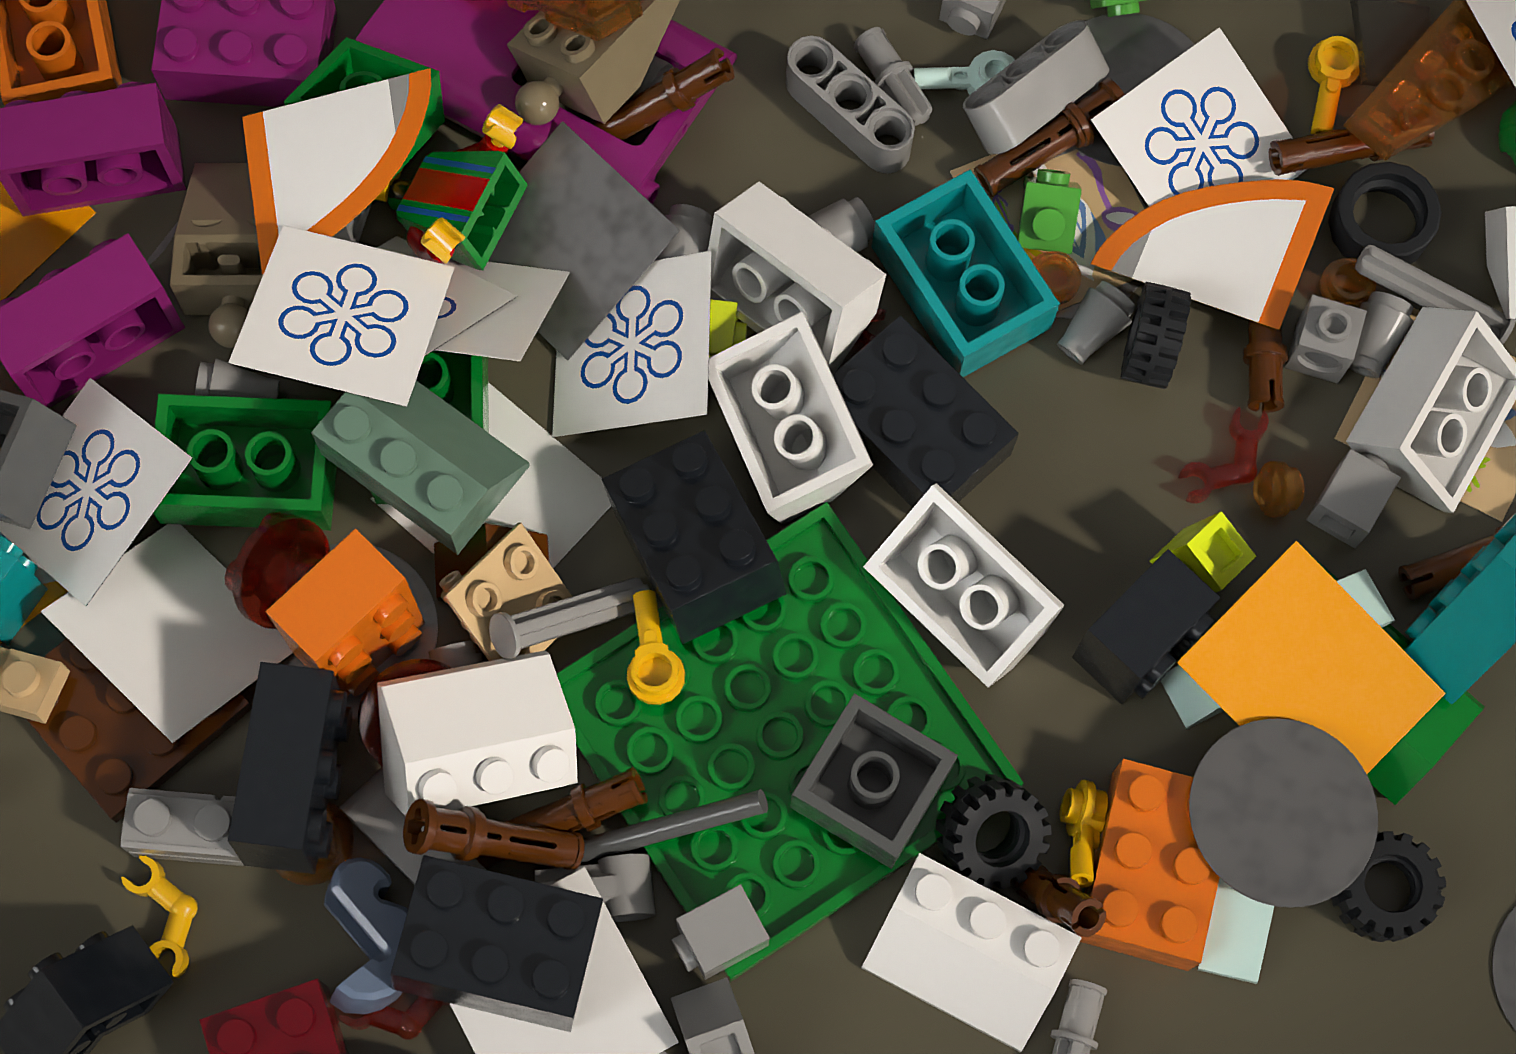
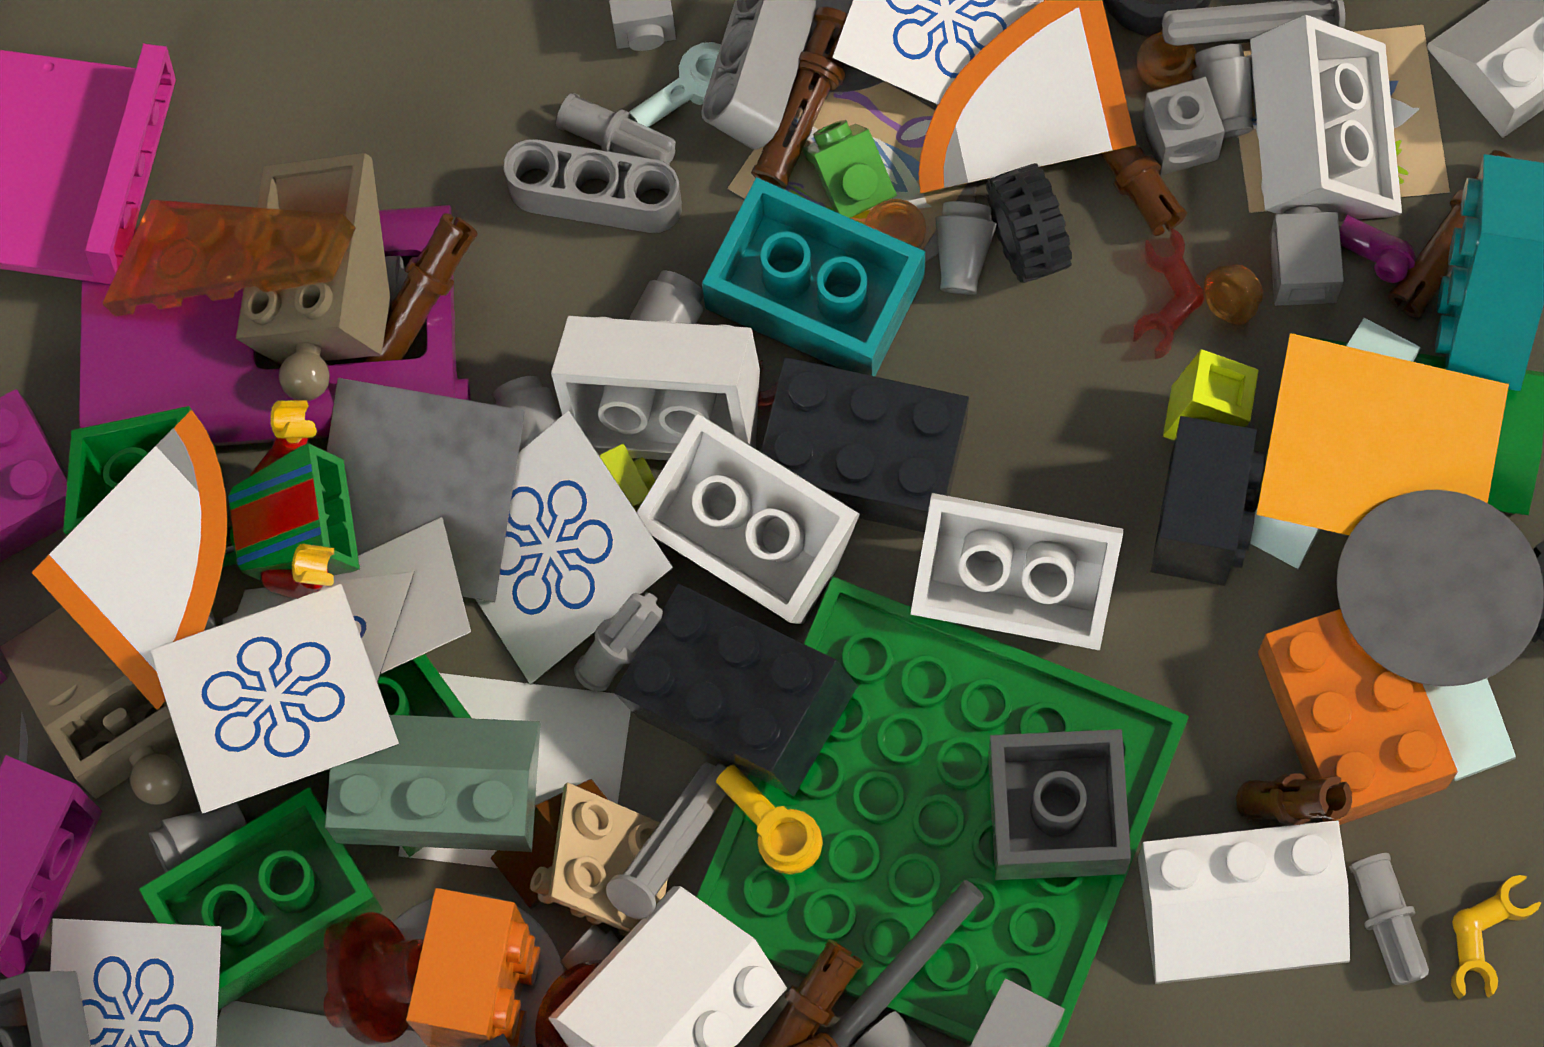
camera: 25 degrees left, 0 degrees up
(631, 444) = (617, 641): none -> light grey axle
(1018, 848) = (1223, 784): black tyre -> none
(1084, 815) = (1262, 709): yellow plate -> none
(1421, 537) = (1390, 253): none -> magenta arm

